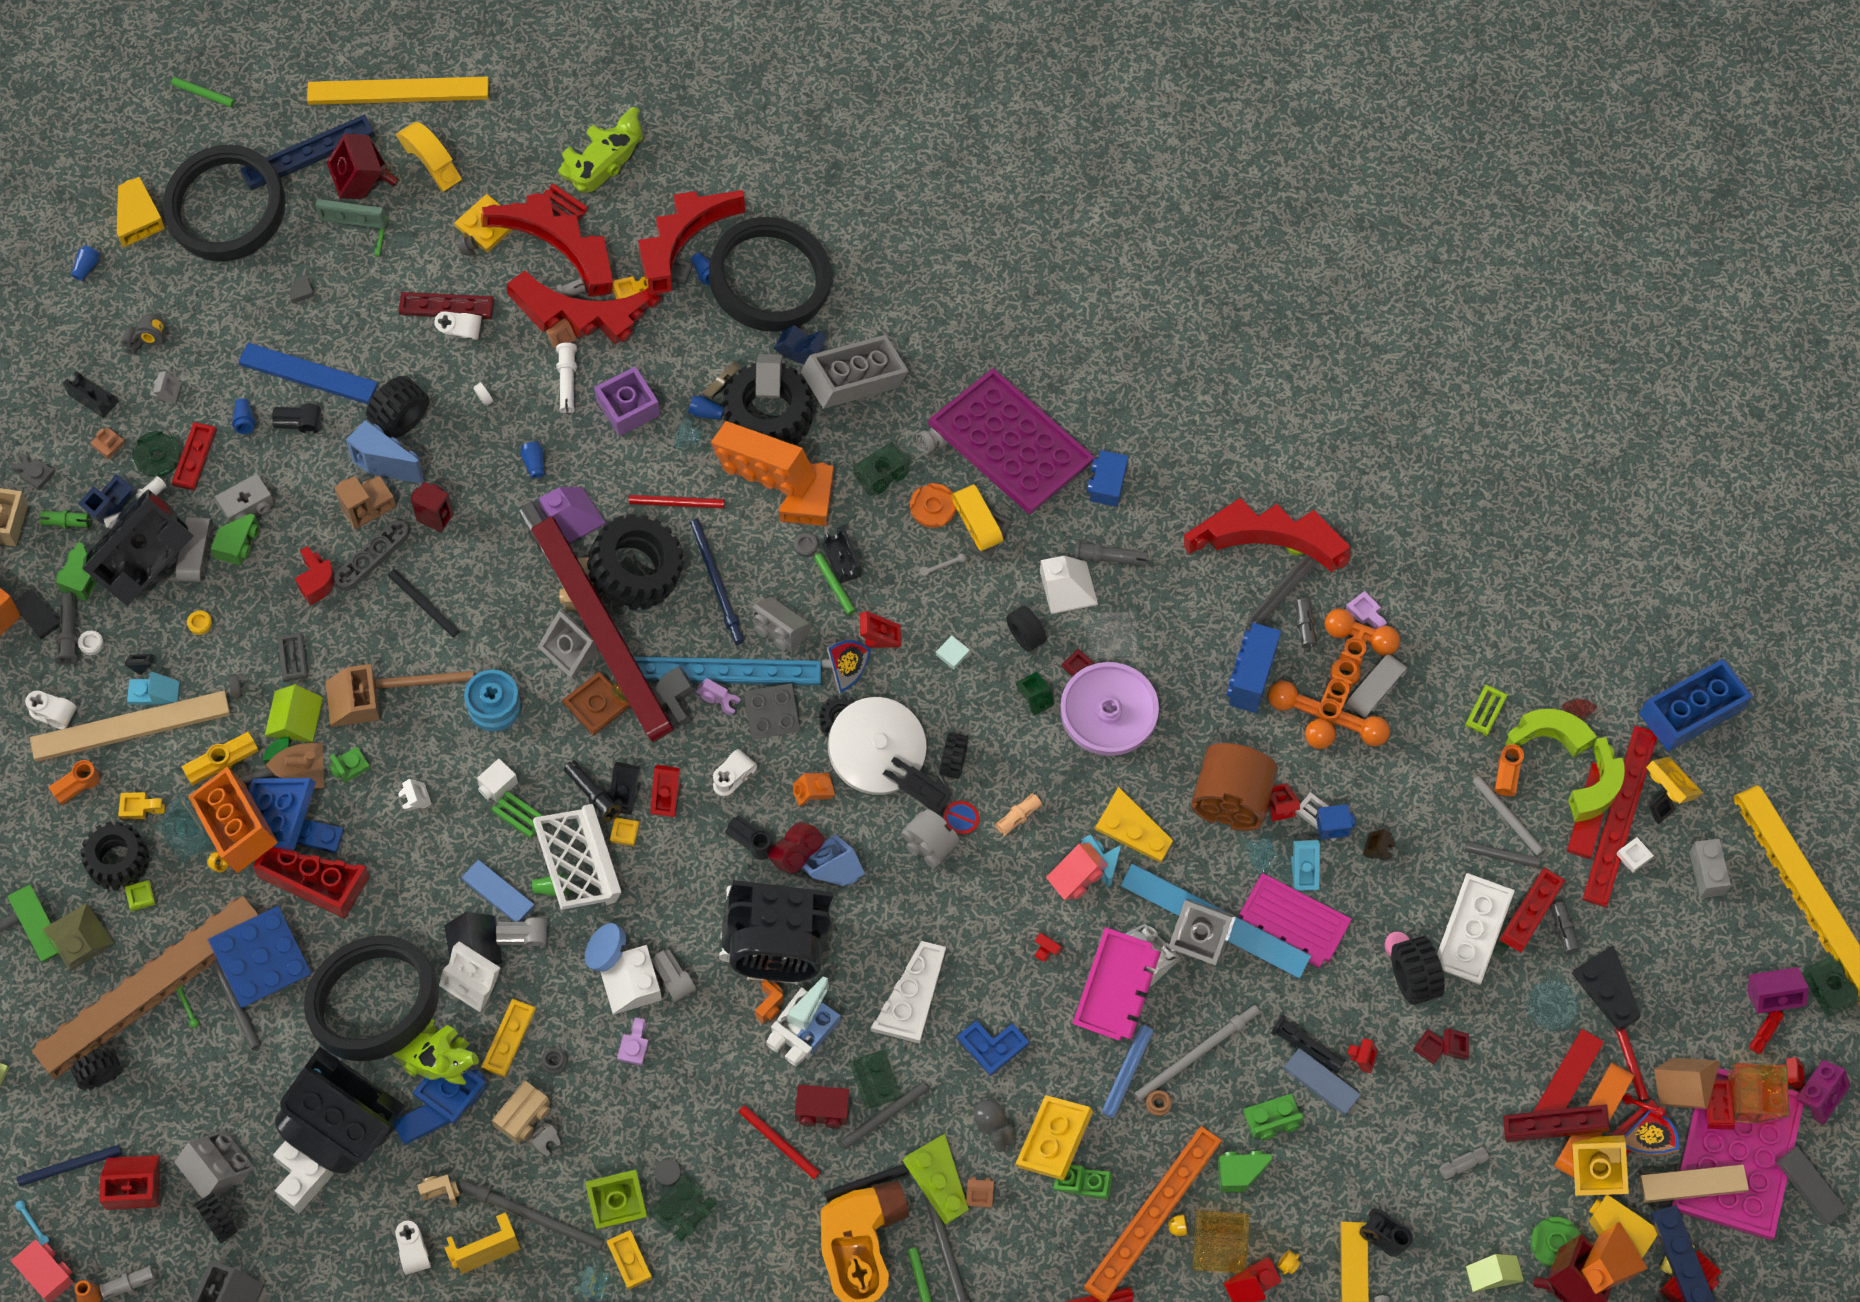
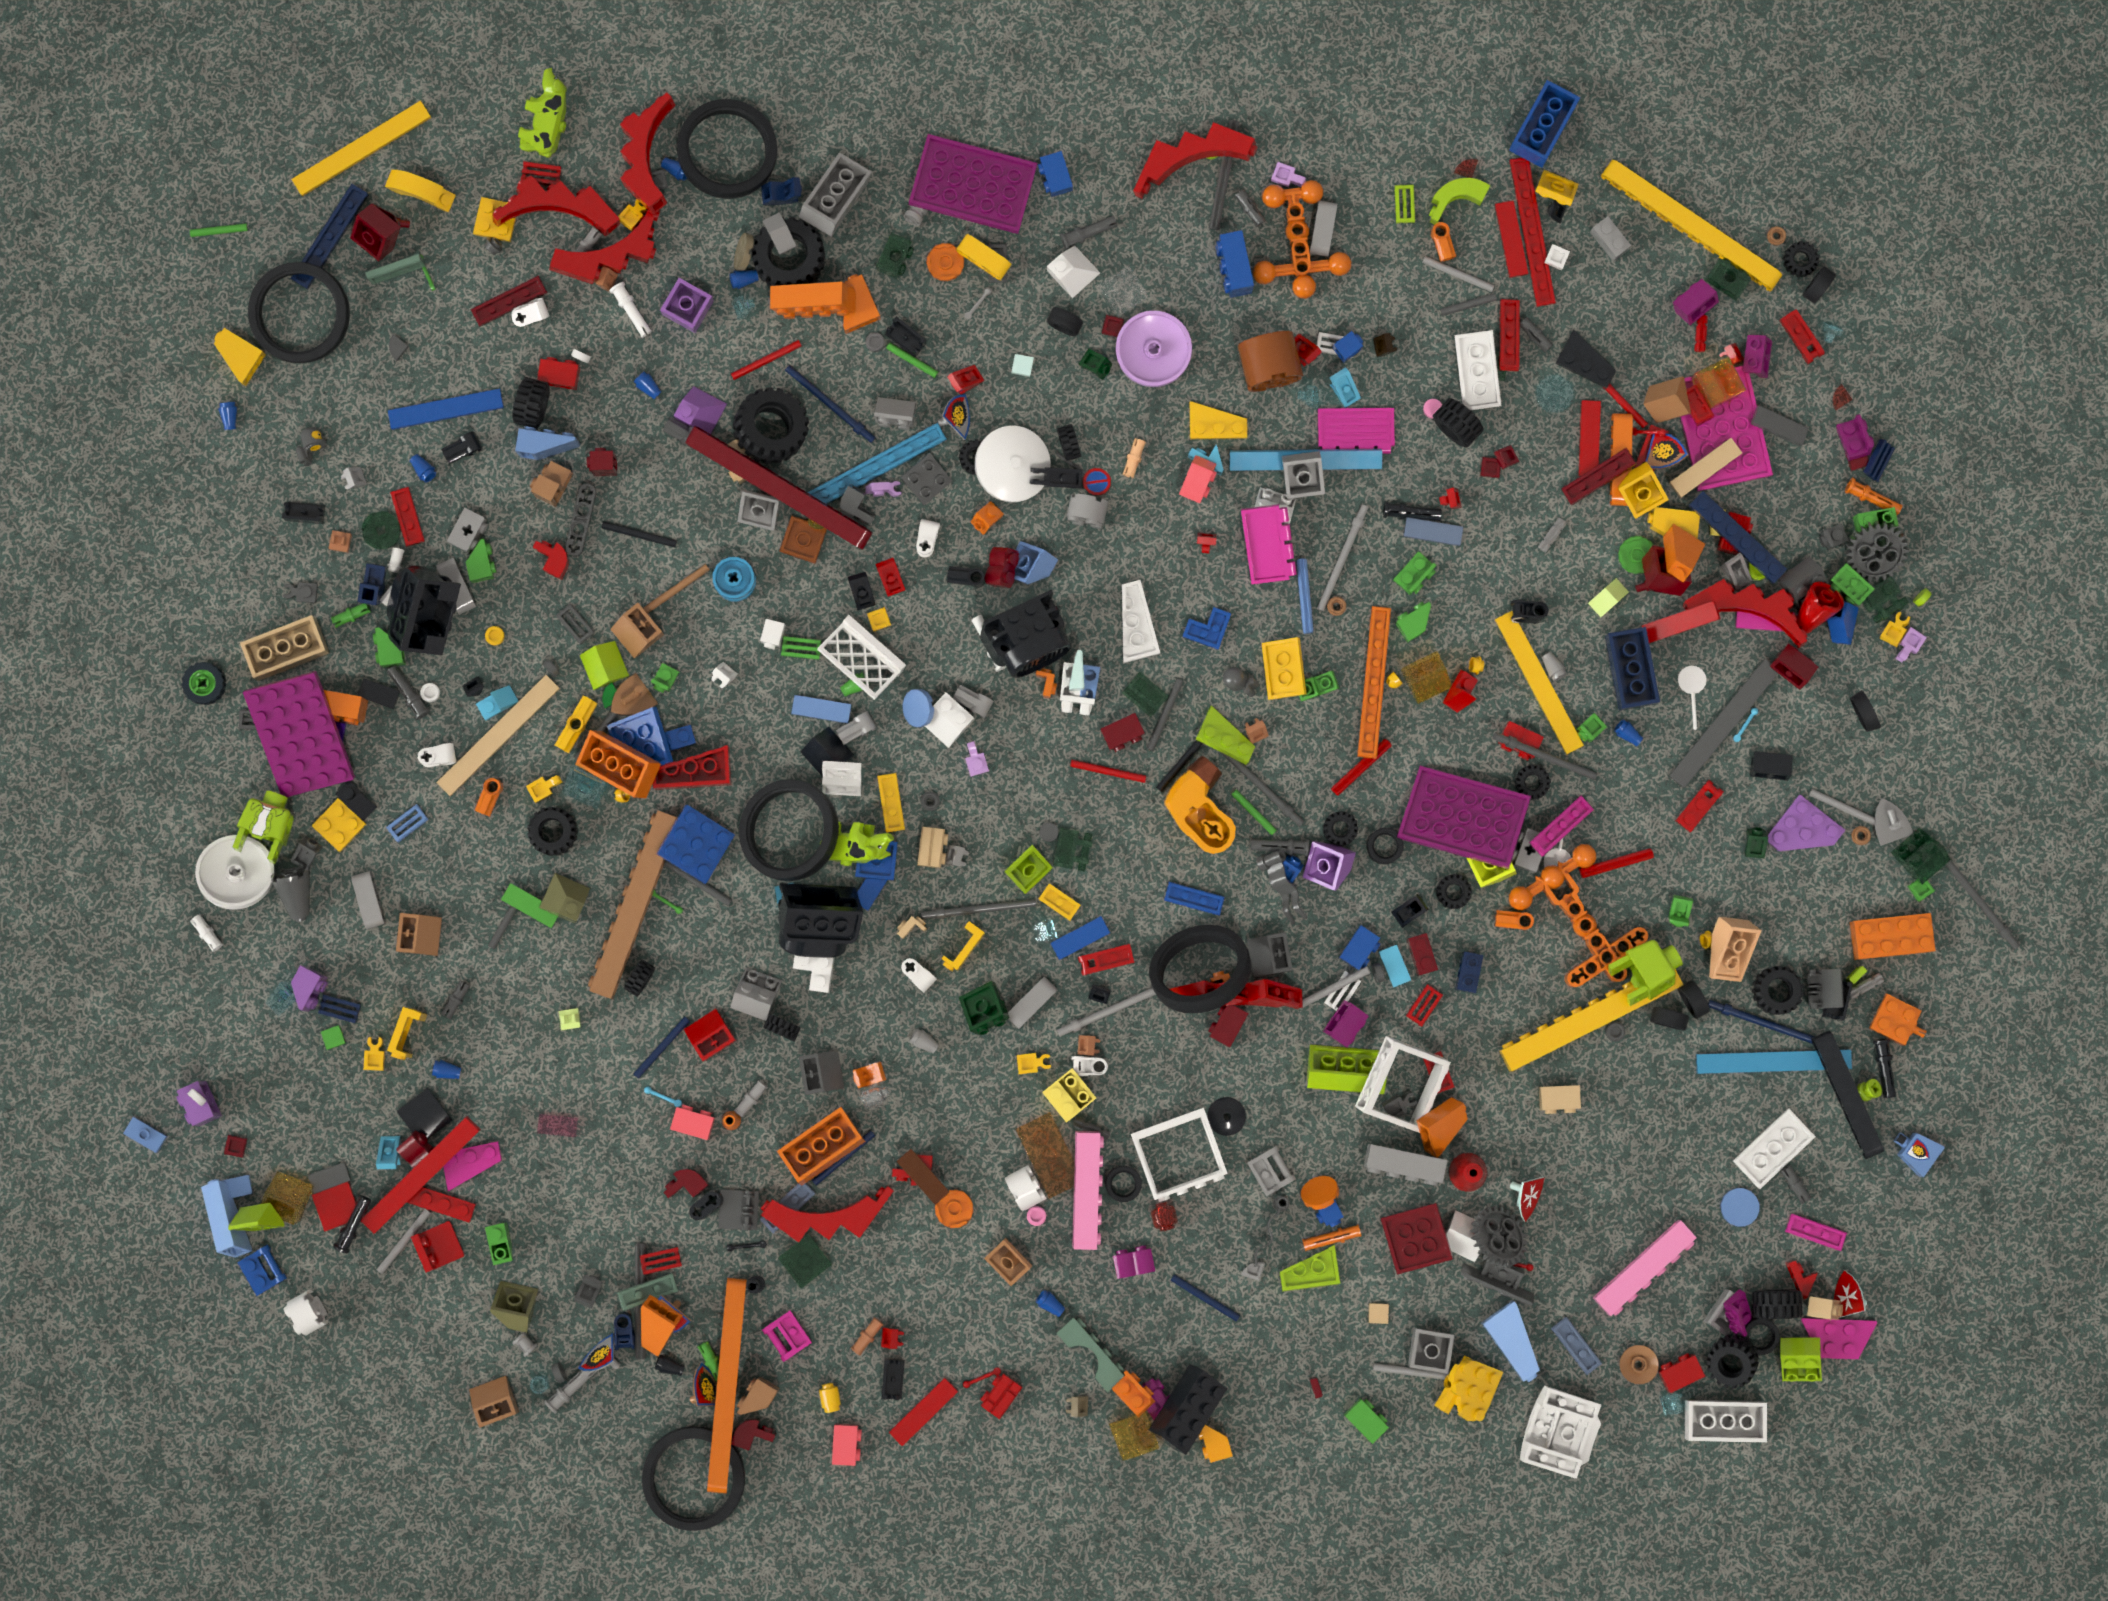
camera: 30 degrees left, 20 degrees up
(140, 895) = (585, 846): lime tile -> none
(449, 399) = (559, 373): none -> red brick
(598, 797) = (848, 607): black pin -> none
(1595, 800) = (1516, 218): lime arch -> none

